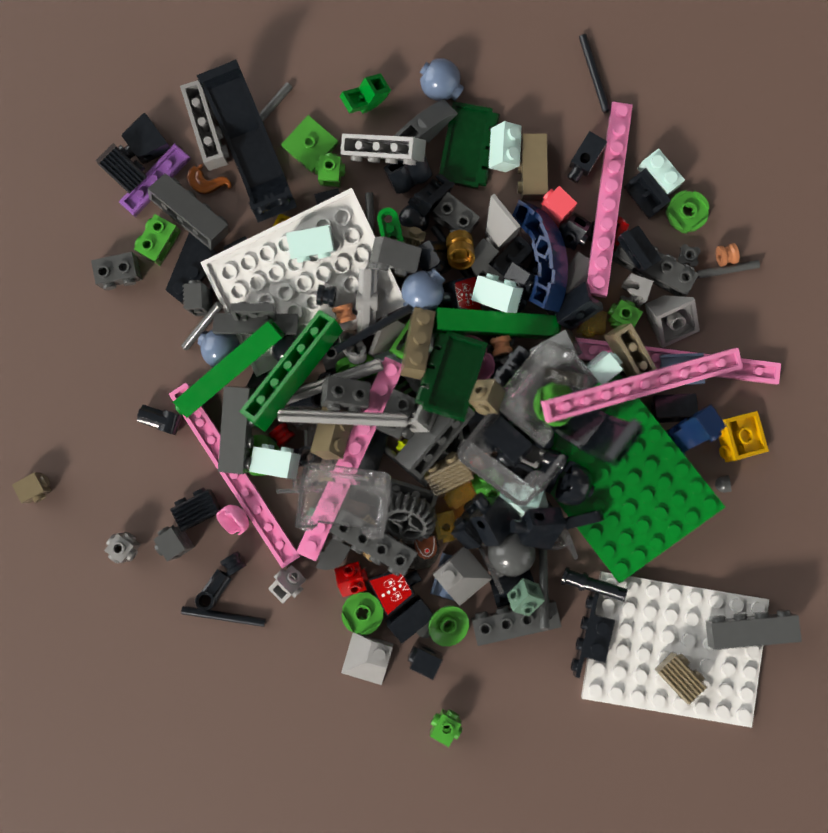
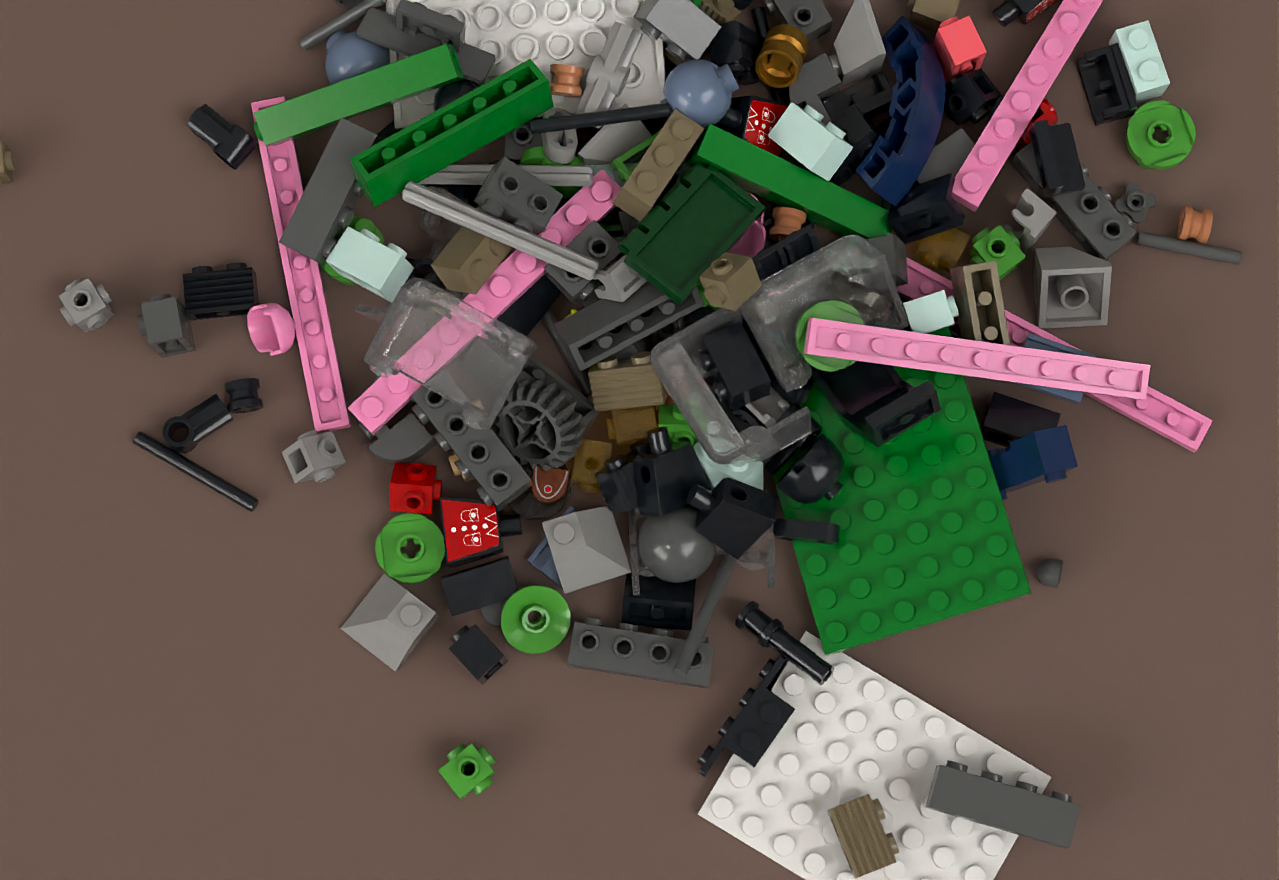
camera: 15 degrees right, 5 degrees down
(282, 434) = (398, 229): red wheel -> none
(326, 295) = (549, 43): black wheel -> none
(525, 597) = (670, 615): sand green brick -> none
(742, 437) = (1105, 508): yellow plate -> none

